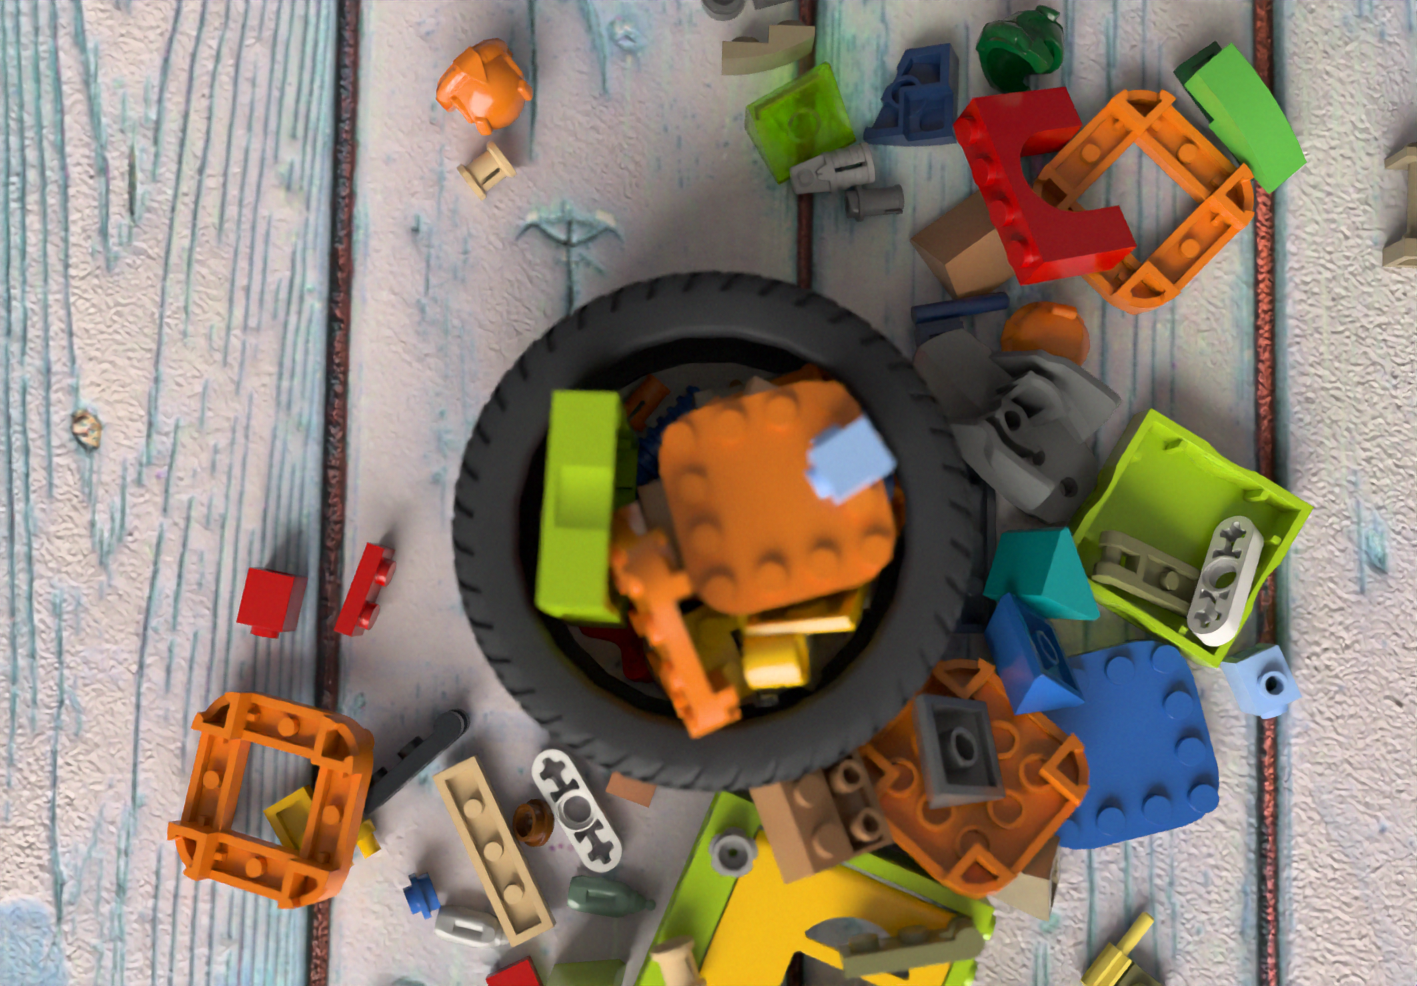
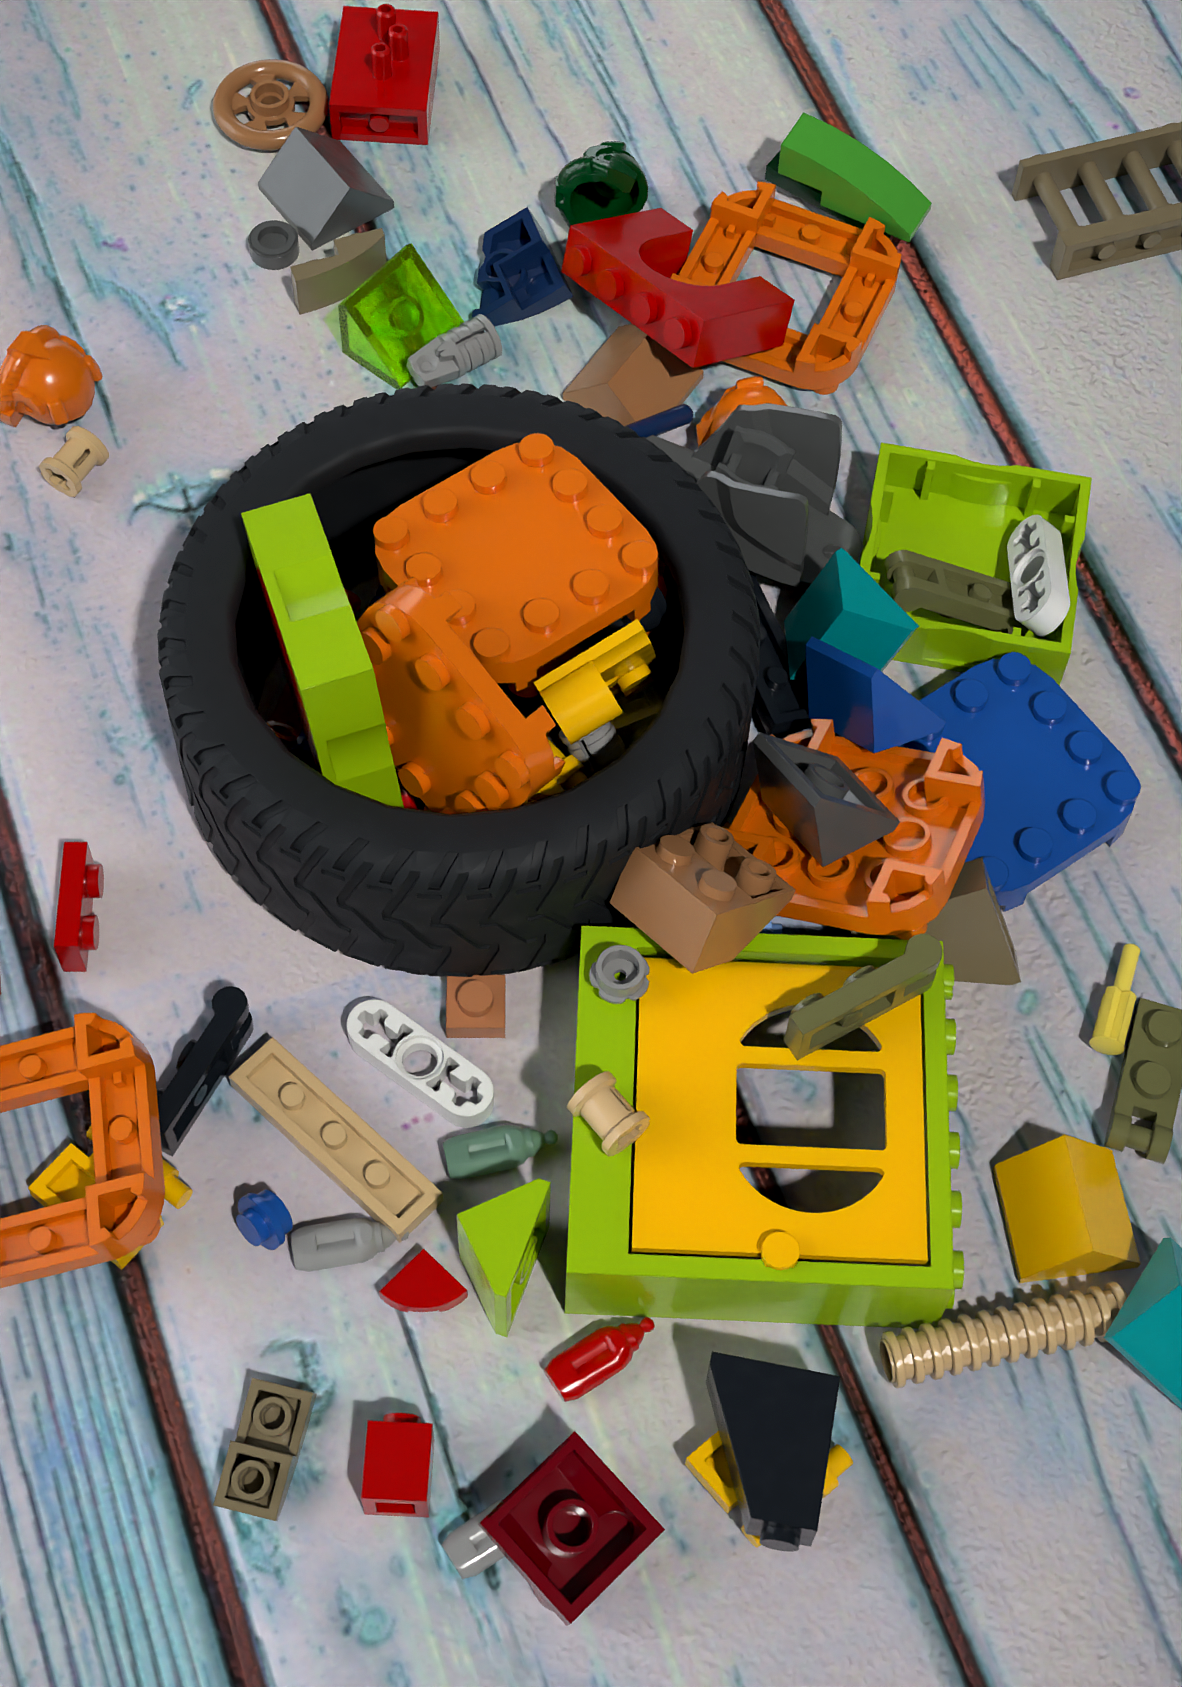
camera: 30 degrees left, 25 degrees down
(533, 822) = (372, 1090): reddish brown plate -> none
(846, 461) = (576, 475): light blue brick -> none
(873, 201) = (510, 367): dark grey pin -> none
(1261, 680) = (1127, 668): light blue brick -> none

